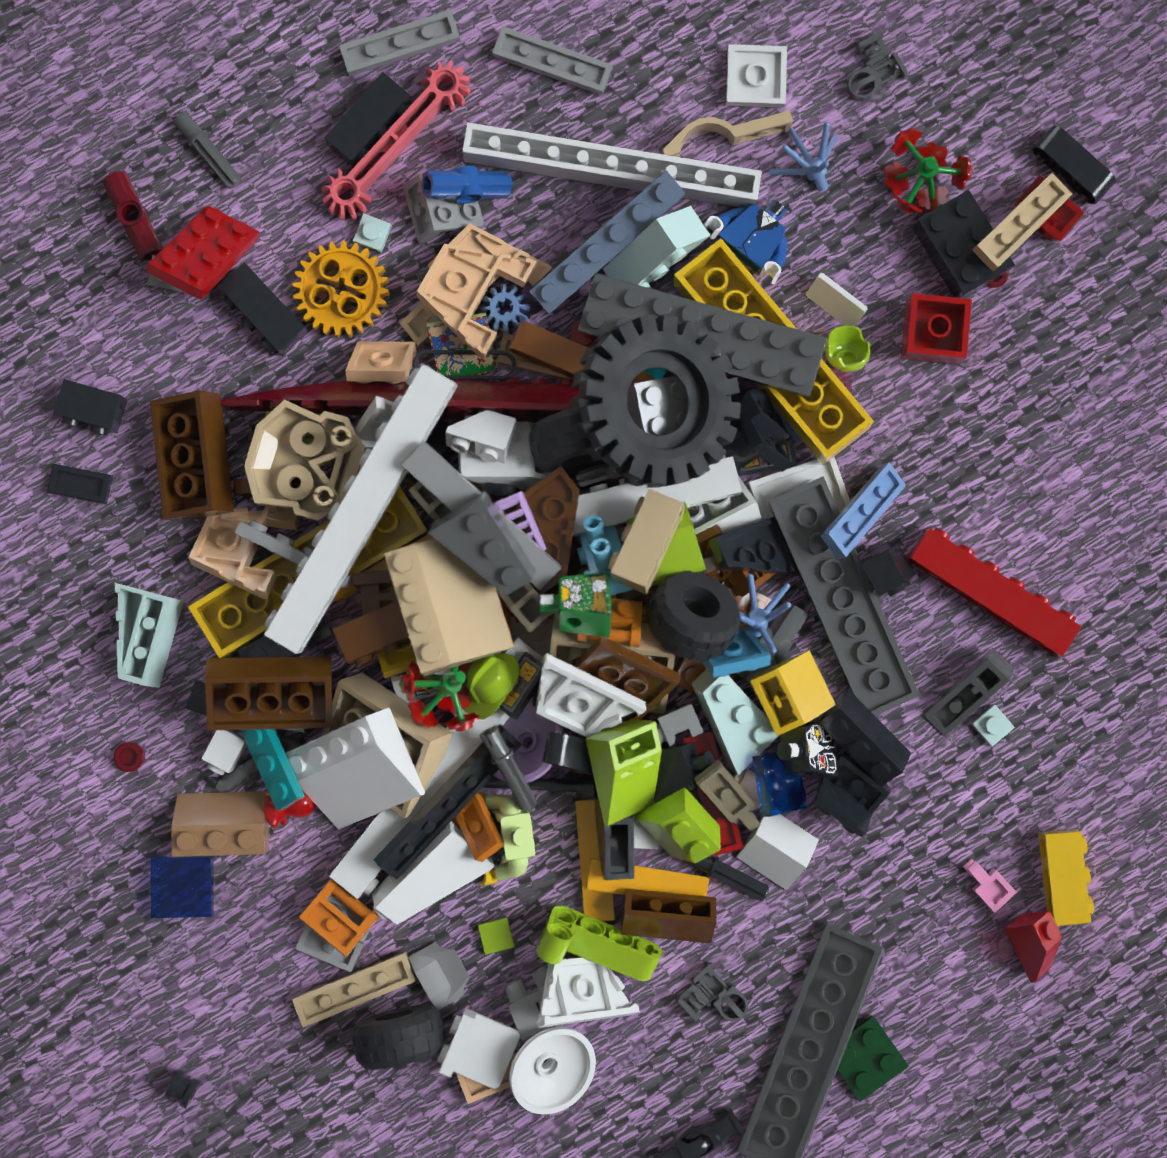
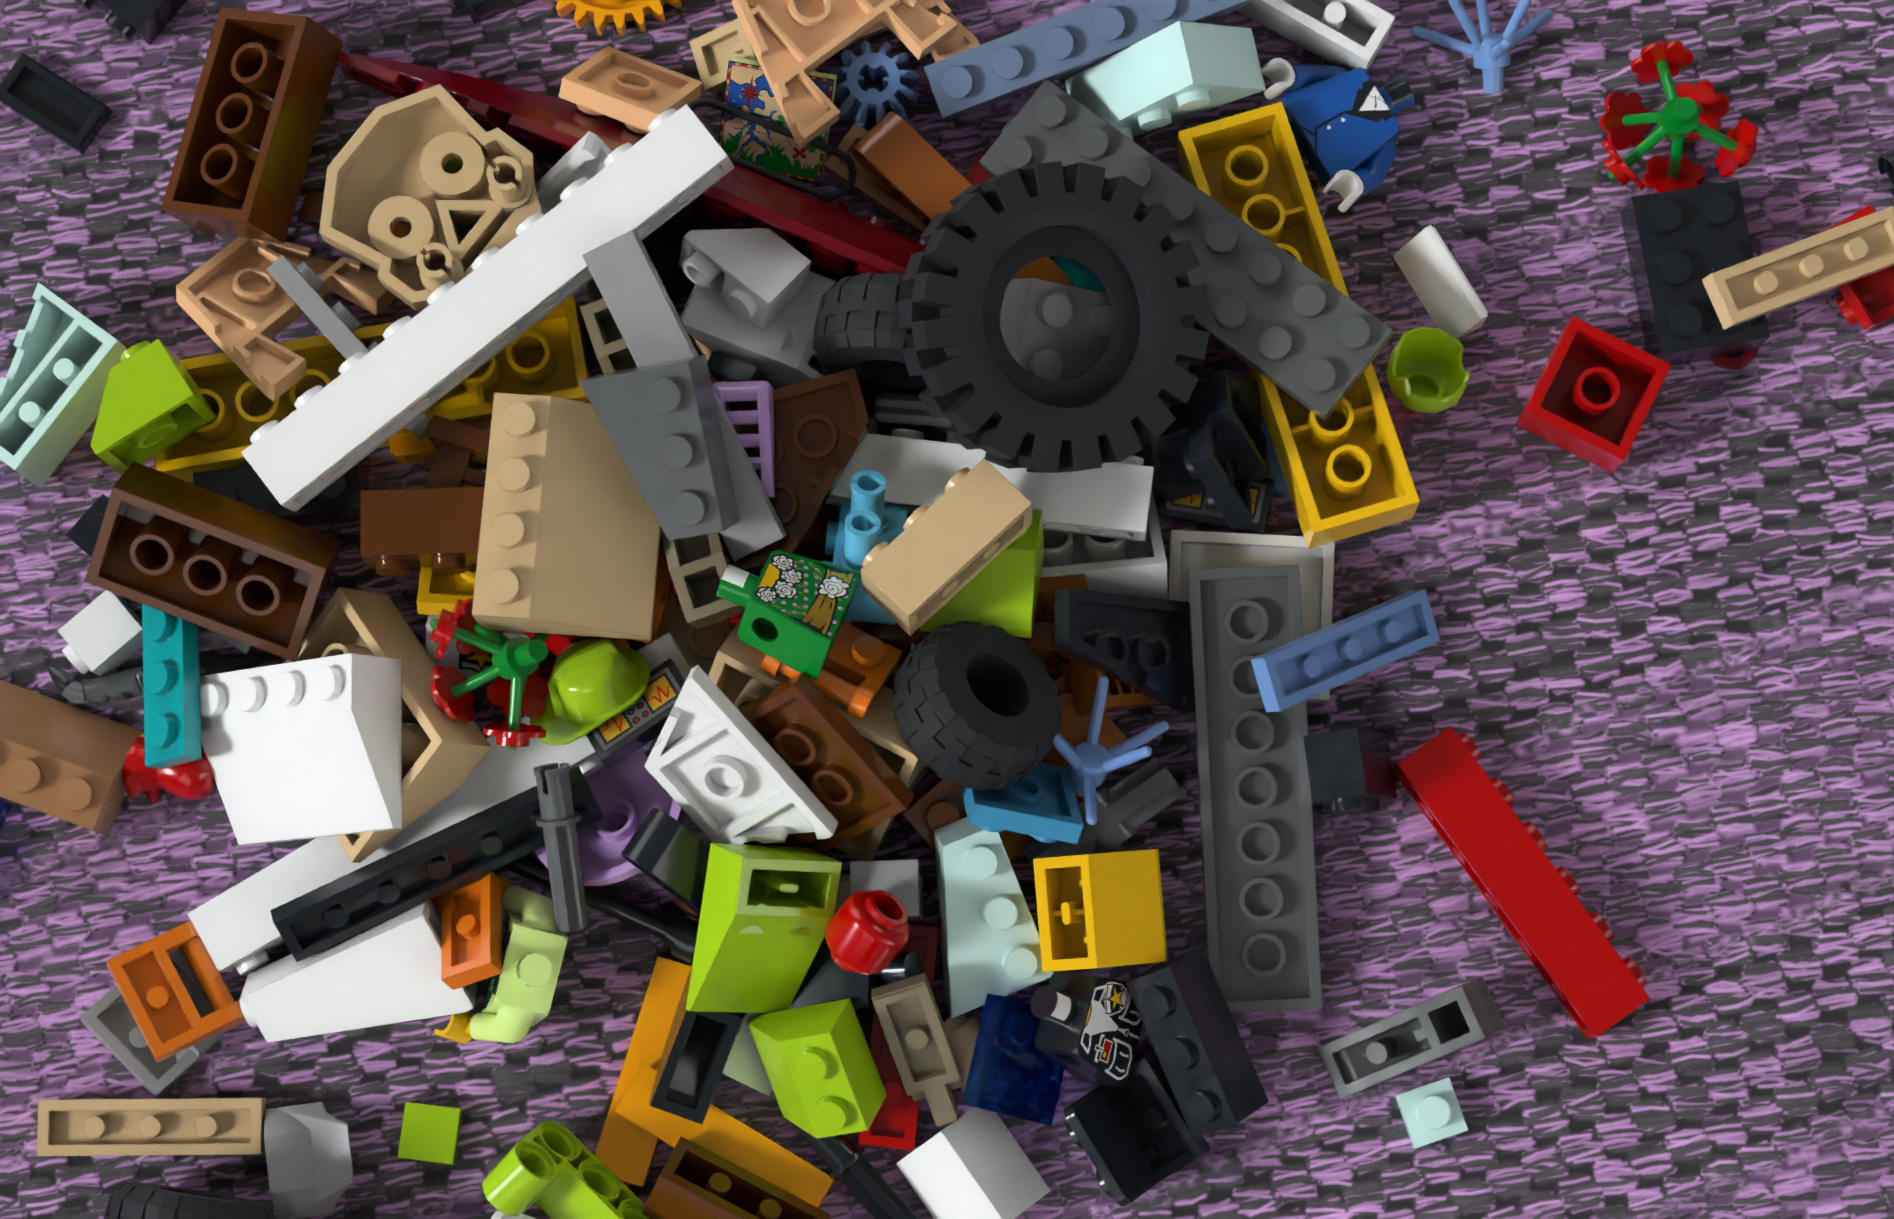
camera: 30 degrees right, 5 degrees down
(203, 627) = (147, 406): none -> lime slope
(682, 751) = (867, 931): none -> red head

